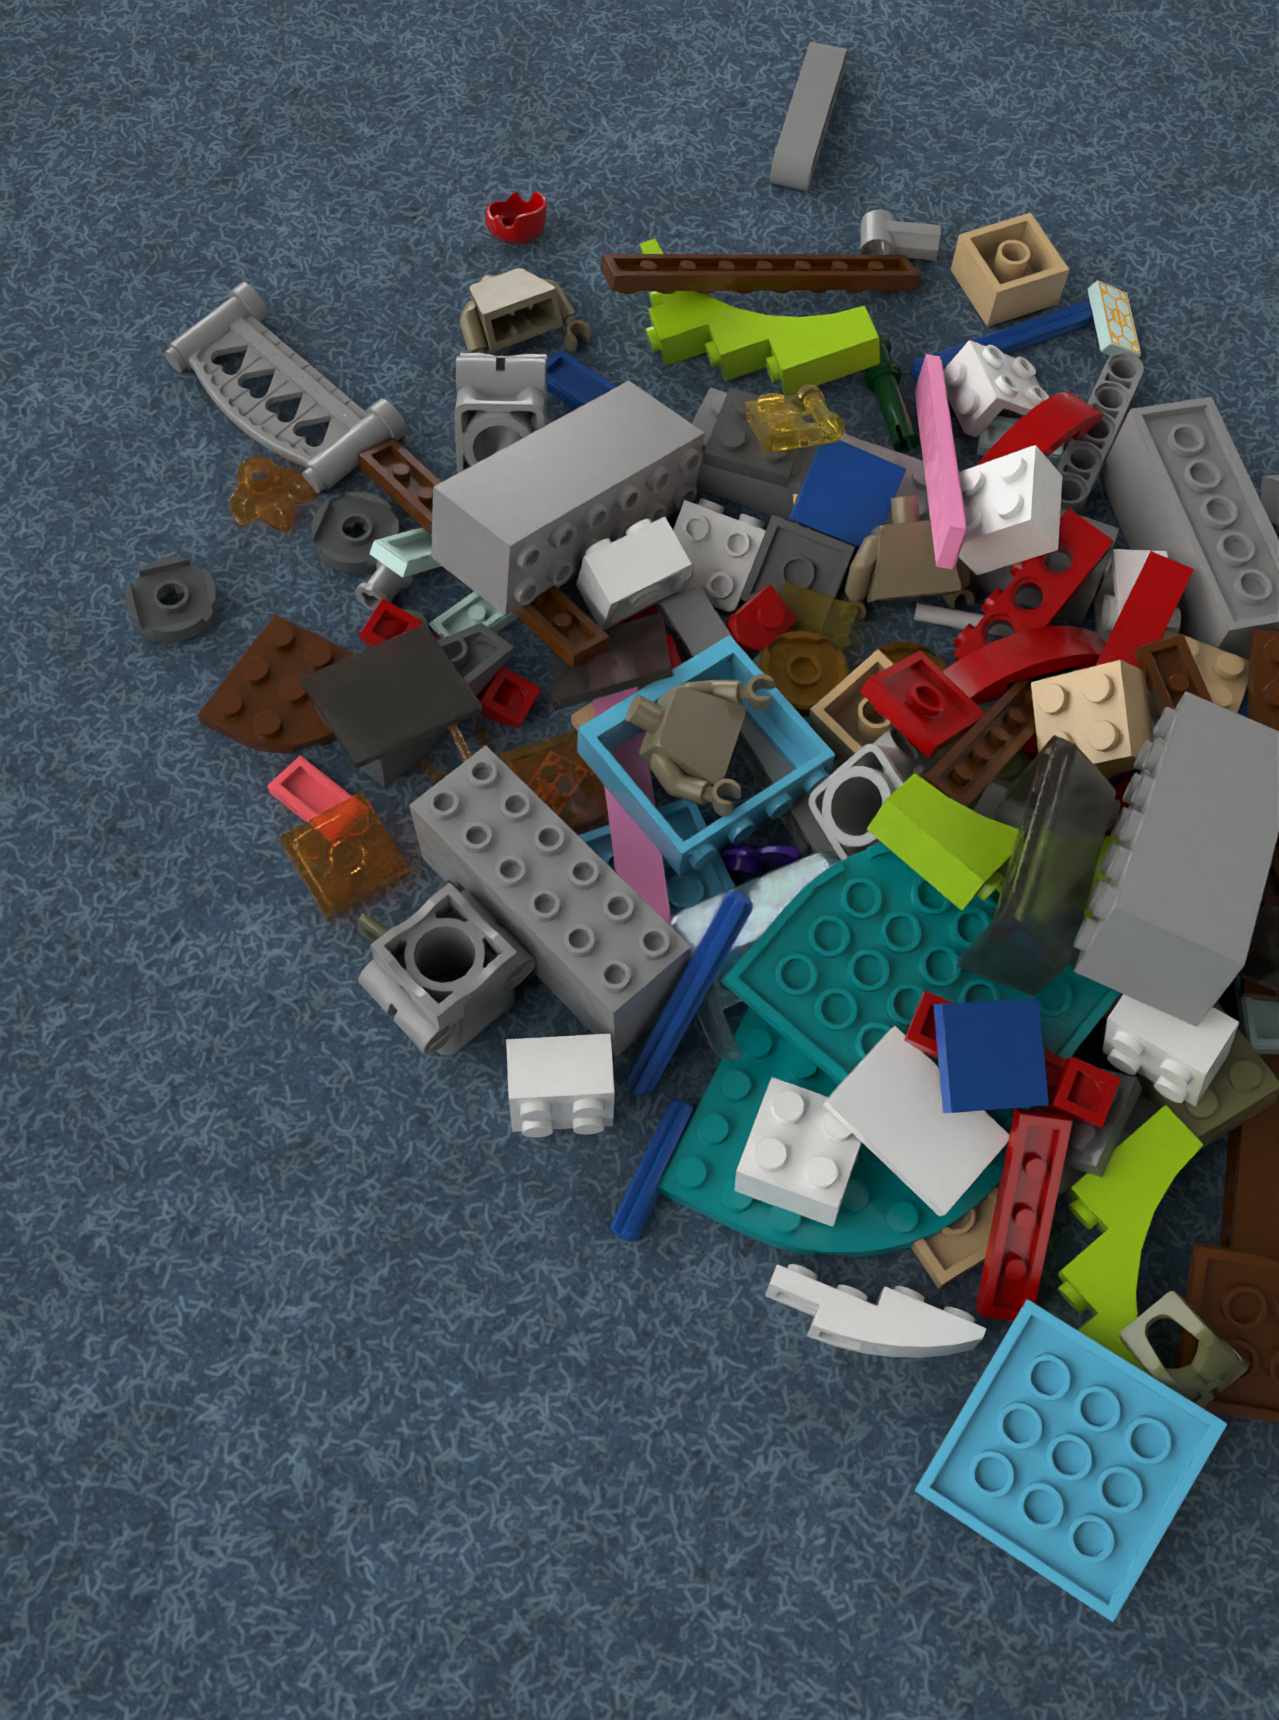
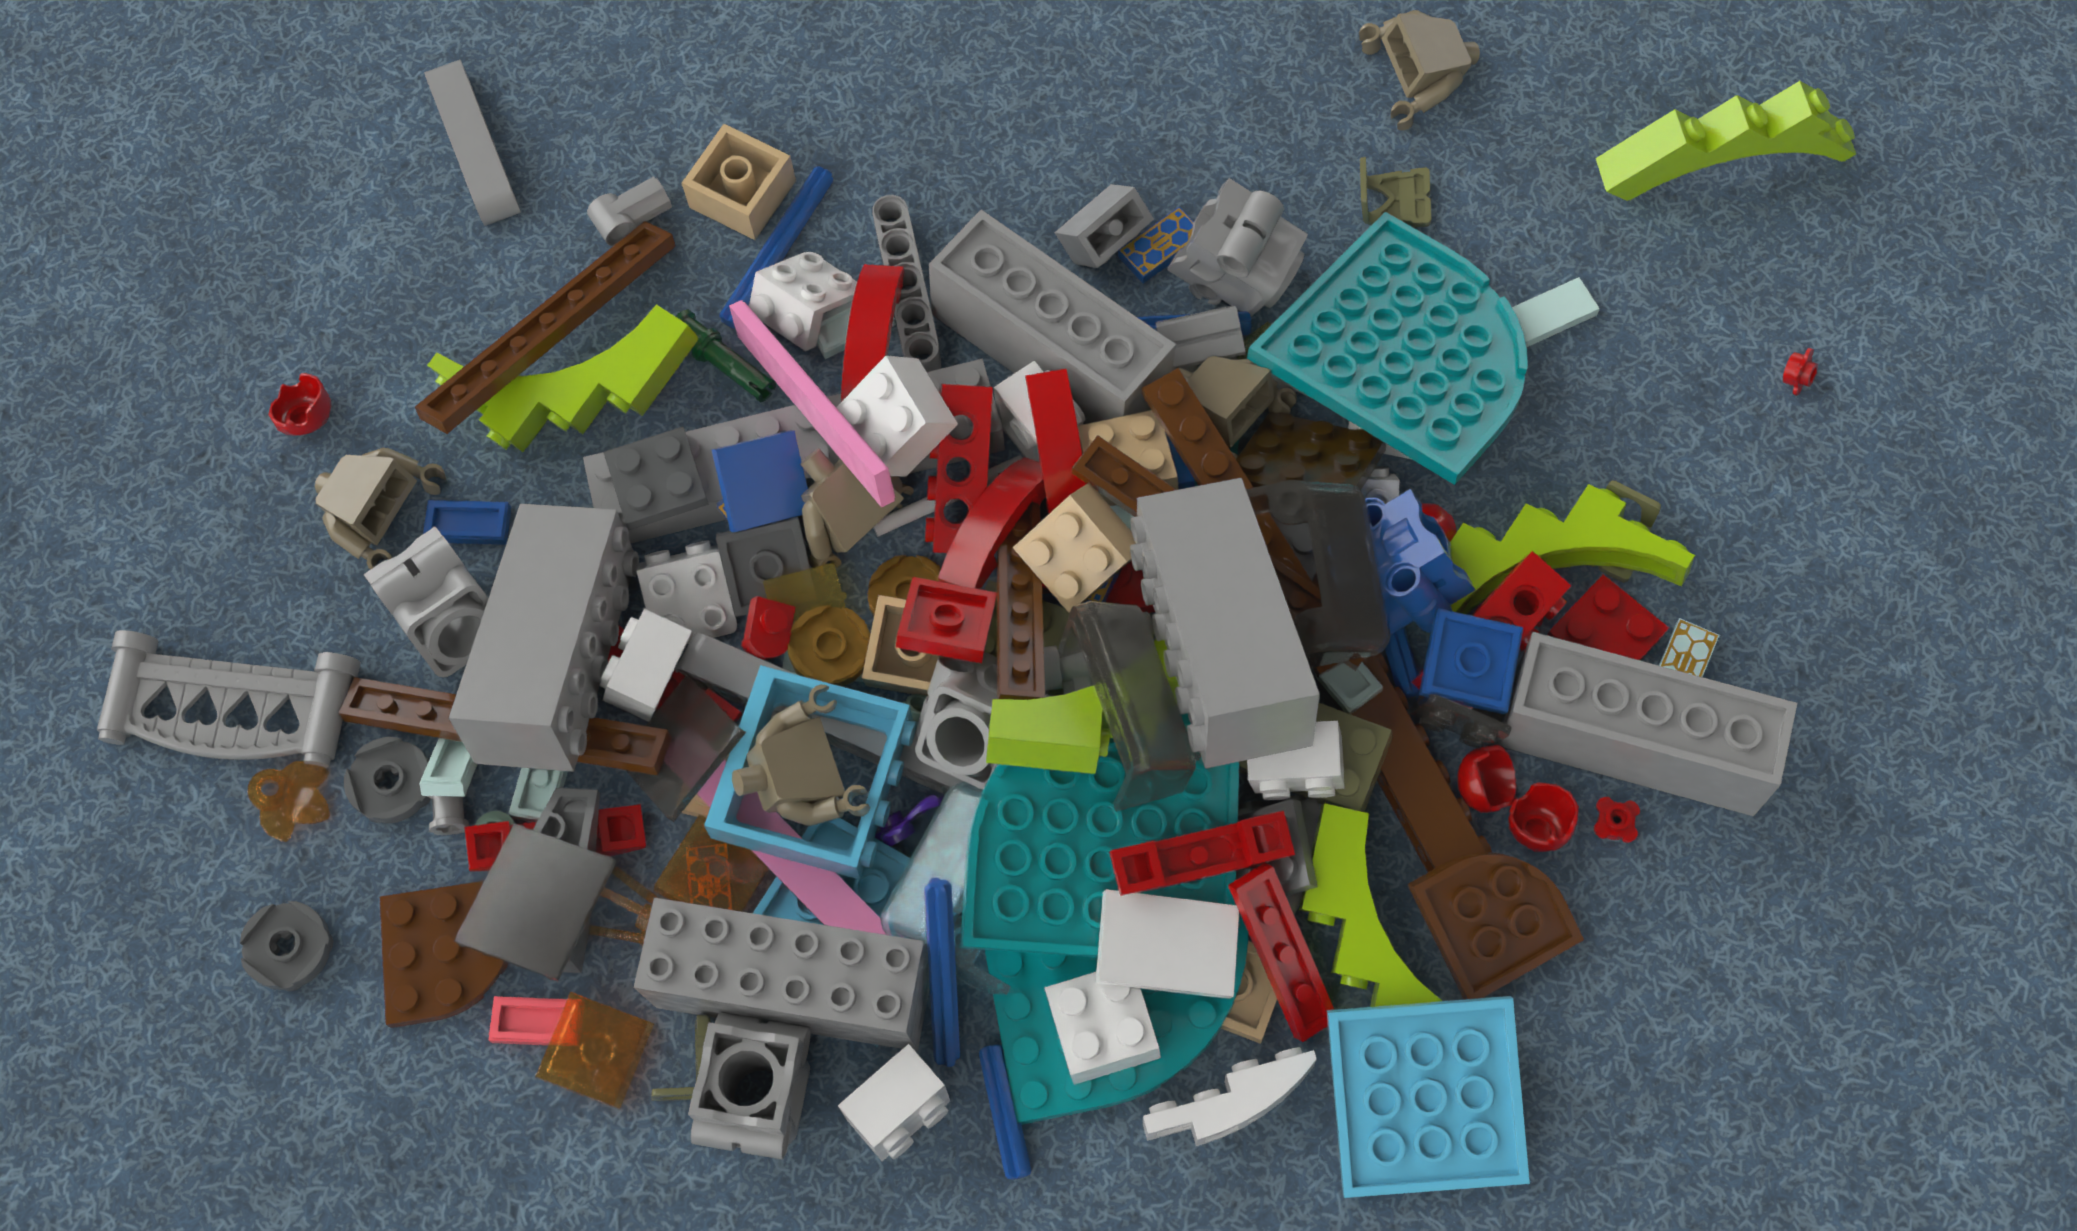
camera: 30 degrees left, 5 degrees up
(780, 424) = (674, 466): clear yellow plate -> none
(990, 1055) = (1187, 863): blue tile -> none
(1113, 319) = (851, 169): light aqua tile -> none
(1215, 1361) = (1477, 962): olive piece -> none

